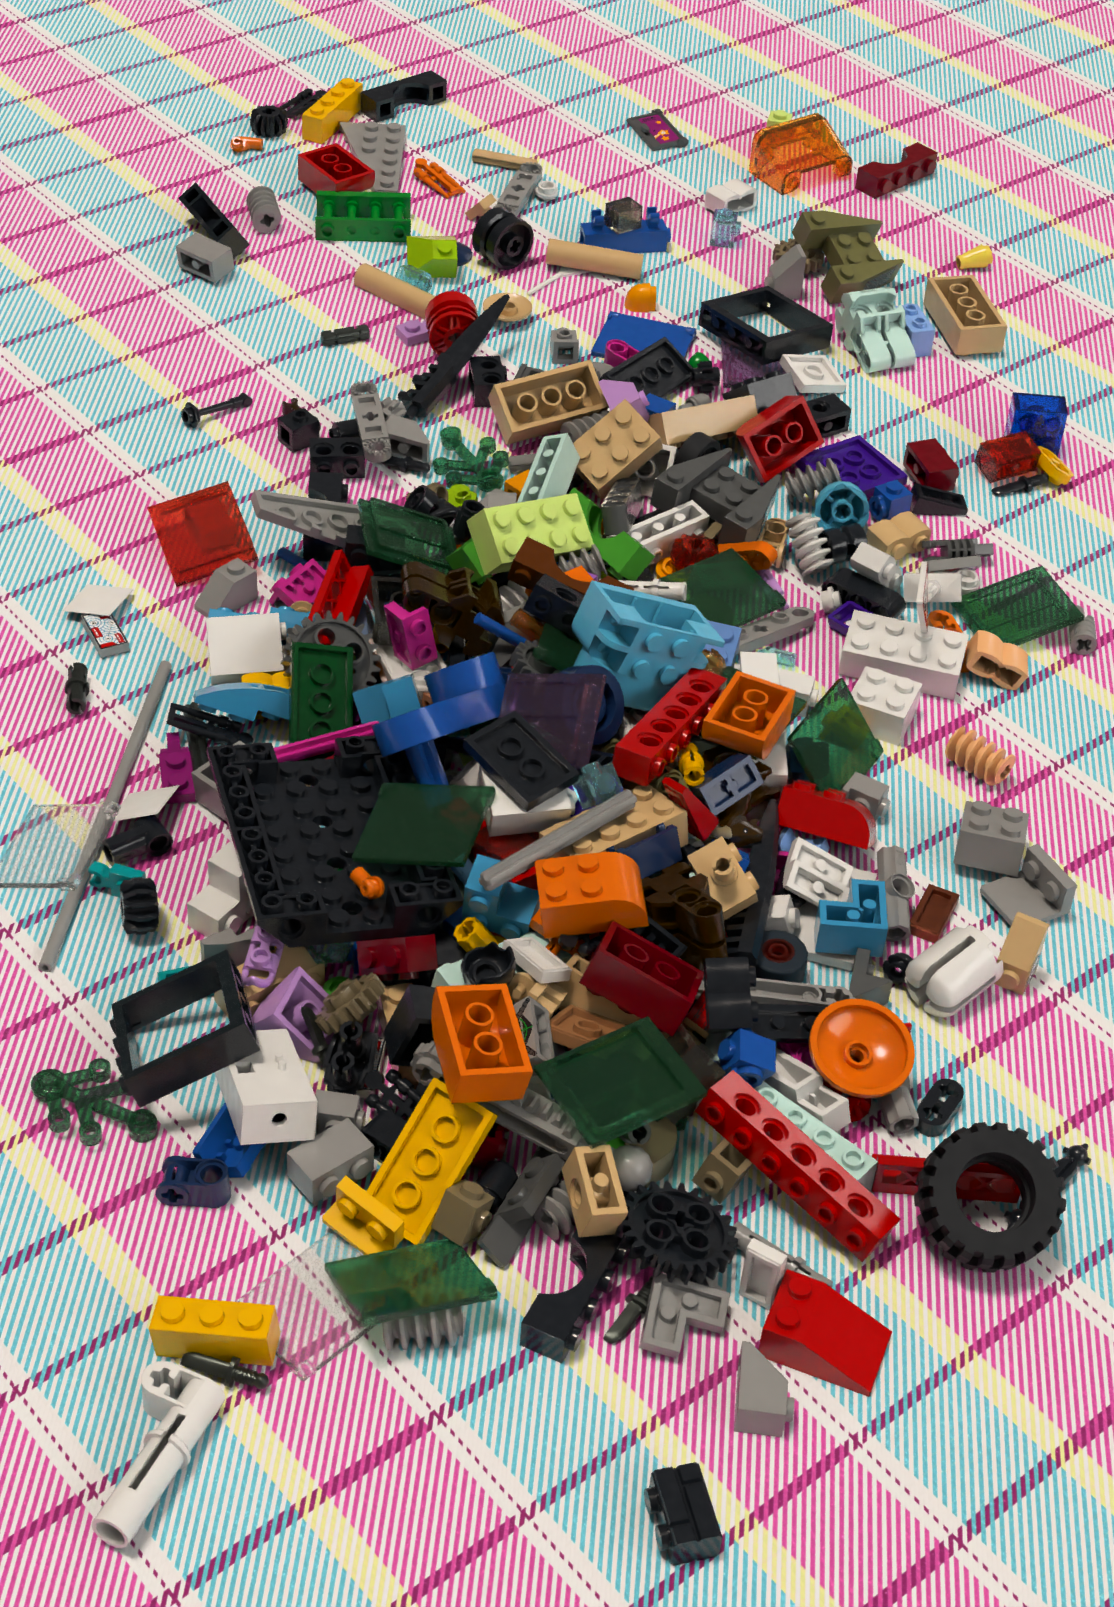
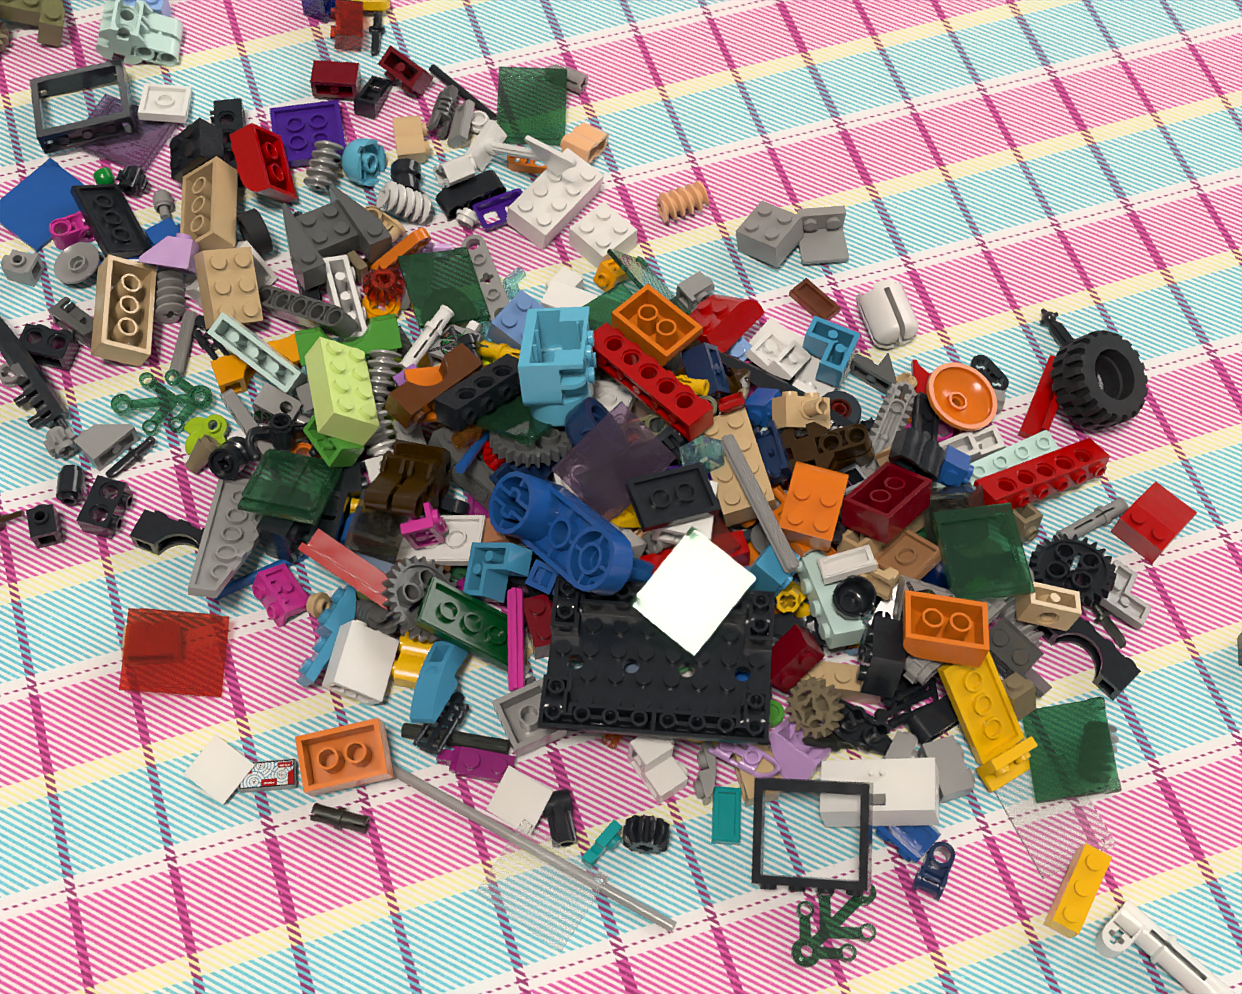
camera: 70 degrees left, 20 degrees up
(137, 662) = (344, 757): none -> orange brick
(225, 1370) = (1103, 892): pearl dark grey piece -> none
(229, 587) = (260, 656): light grey slope -> none
(370, 422) = (65, 458): light grey piece -> none
(370, 886) = (743, 650): orange arm -> none
(760, 1395) = (1192, 574): light grey slope -> none
(762, 1273) = (1117, 533): white tile -> none
(788, 273) = (17, 57): light grey slope -> none
(889, 500) = (368, 123): blue brick -> none
(894, 961) = (866, 344): black plate -> none
(898, 889) = (796, 313): light grey piece -> none
(981, 507) = (405, 70): none -> dark red brick
(998, 558) = (462, 92): none -> black bar
(1021, 952) = (885, 264): tan slope -> none

